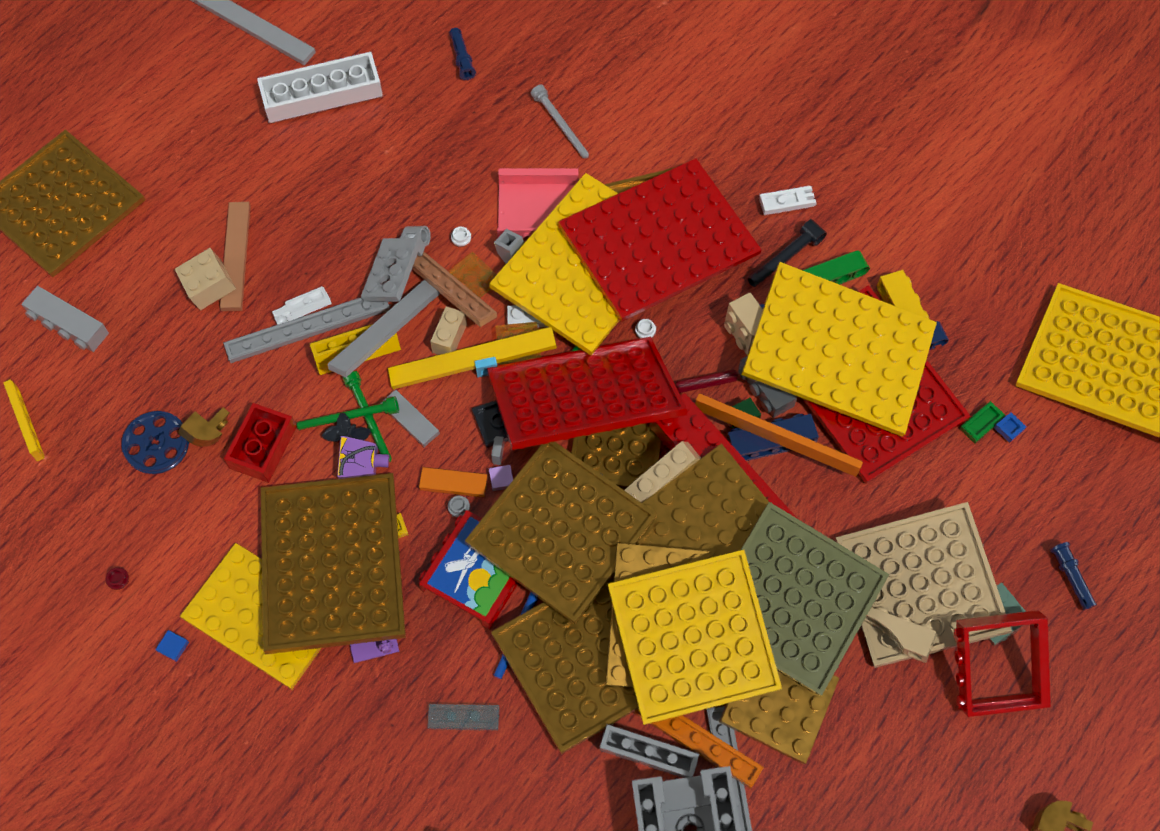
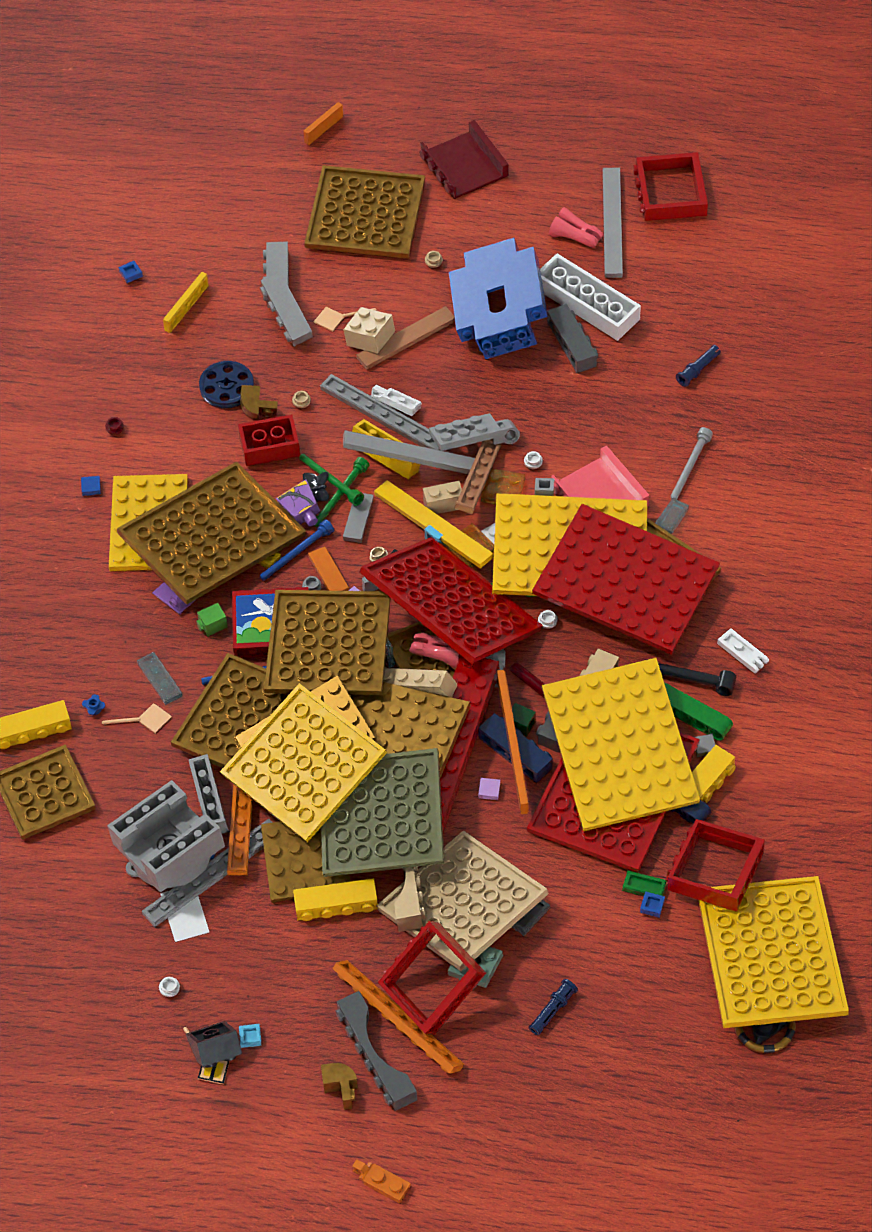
camera: 60 degrees right, 10 degrees down
(78, 89) = (466, 162): none -> dark red panel
(118, 333) = (286, 308): none -> light grey brick
(157, 305) = (331, 319): none -> light nougat piece
(166, 180) = (433, 259): none -> tan plate
(230, 54) = (572, 227): none -> coral piece
(231, 386) = (301, 399): none -> tan plate
(233, 134) = (493, 269): none -> panel
(353, 126) = (572, 338): none -> dark grey brick
(402, 455) = (325, 528): none -> blue piece
(433, 623) = (211, 620): none -> bright green brick
(456, 809) = (93, 709): none -> blue plate
(470, 426) = (377, 553): none -> tan plate
(507, 753) = (153, 718): none -> light nougat piece
(604, 167) = (672, 515): none -> clear light blue tile
(620, 445) = (434, 647): none -> coral piece
(799, 487) = (489, 789): none -> lavender tile
(844, 701) = (335, 899): none -> yellow brick
(863, 281) = (705, 745): none -> light grey tile
(989, 759) = (395, 1084): none -> dark grey arch
(1002, 723) = (394, 1013): none -> orange plate
(1027, 329) = (725, 837): none -> red window

